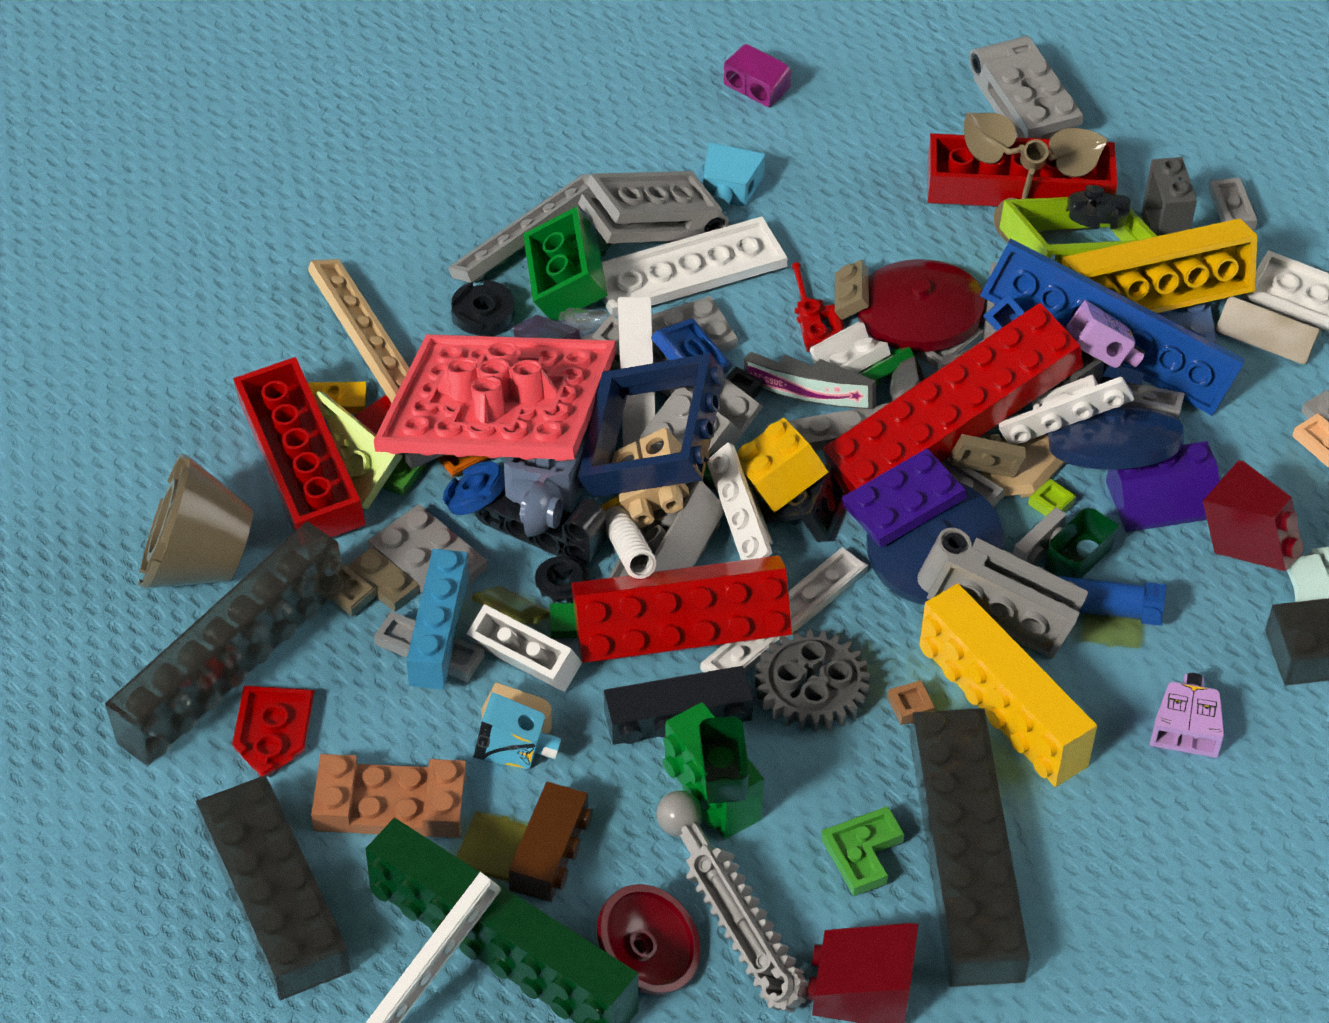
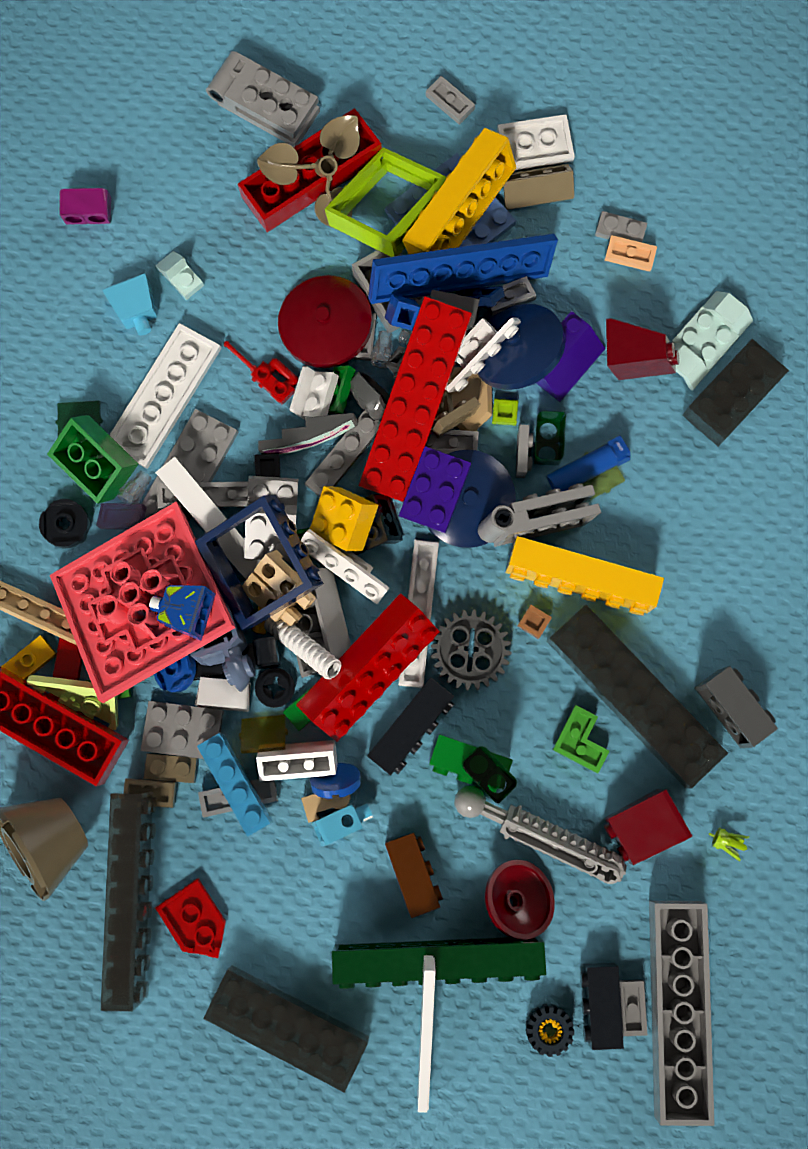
camera: 35 degrees left, 30 degrees up
(369, 796) = (299, 915): nougat piece -> none
(491, 844) = (381, 896): clear yellow piece -> none
(503, 545) = (219, 694): none -> white piece
(511, 239) = (40, 440): light grey plate -> none
(539, 407) = (184, 608): none -> blue torso
(547, 692) = (343, 783): none -> blue tile
(650, 206) = (111, 374): light grey hinge -> none
(688, 340) = (224, 470): blue plate -> none
(801, 185) = (180, 275): none -> light aqua slope
(851, 289) = (277, 341): dark tan plate -> none
(1081, 925) = (736, 707): none -> dark grey brick
(1097, 207) = (387, 163): black plate -> none
(1104, 336) = (468, 285): lavender torso -> none
(1168, 200) = (415, 133): dark grey window -> none
(1189, 718) = (689, 514): lavender torso -> none

